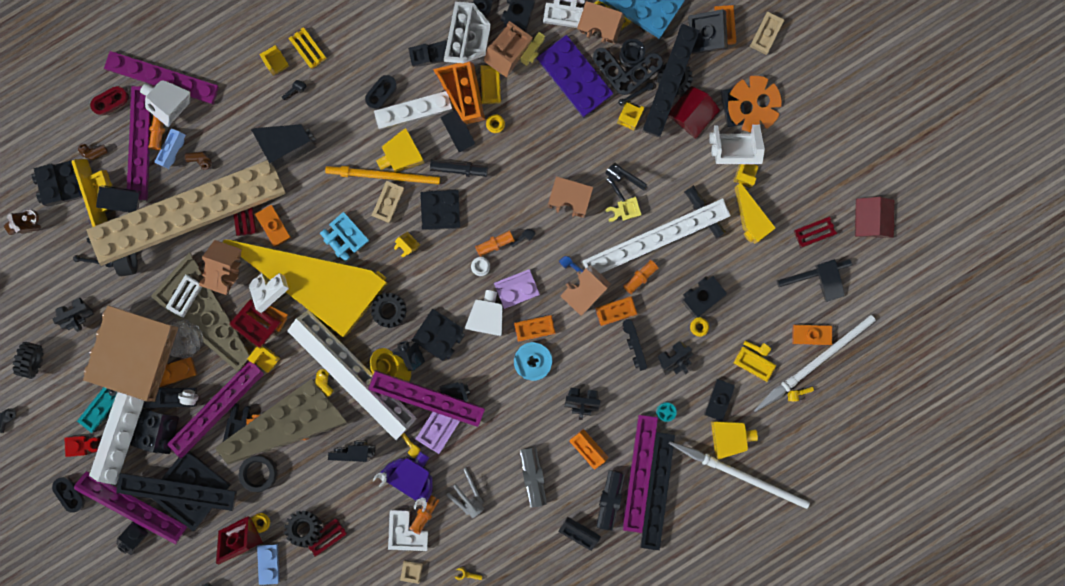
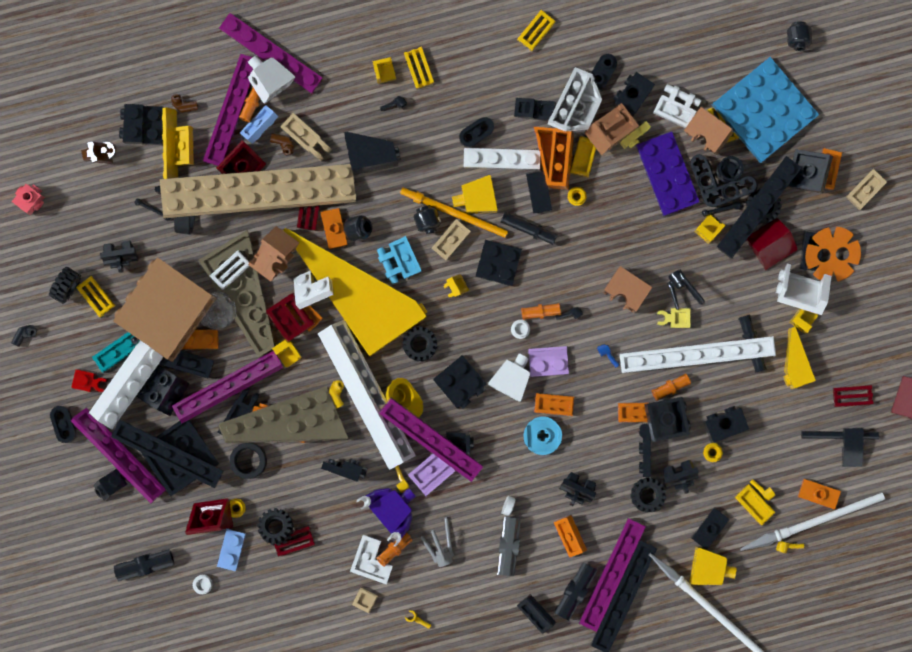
camera: 25 degrees right, 0 degrees up
(77, 370) = (105, 308): none -> yellow tile
(110, 101) = (214, 59): dark red plate -> none
(118, 199) = (197, 158): black hinge -> none
(162, 187) = (241, 160): none -> dark red slope
(188, 397) = (205, 367): white plate -> none
(217, 146) = (304, 135): none -> tan hinge
(295, 218) = (358, 228): none -> black head
(359, 189) = (427, 219): none -> black head
(410, 353) = (428, 392): black bracket -> none
(521, 438) = (508, 506): none -> white tile
(590, 289) = (620, 383): nougat piece -> none
(646, 308) = (667, 419): none -> black plate
(662, 386) = (636, 495): none -> black tyre
(670, 411) = (655, 526): teal wheel -> none

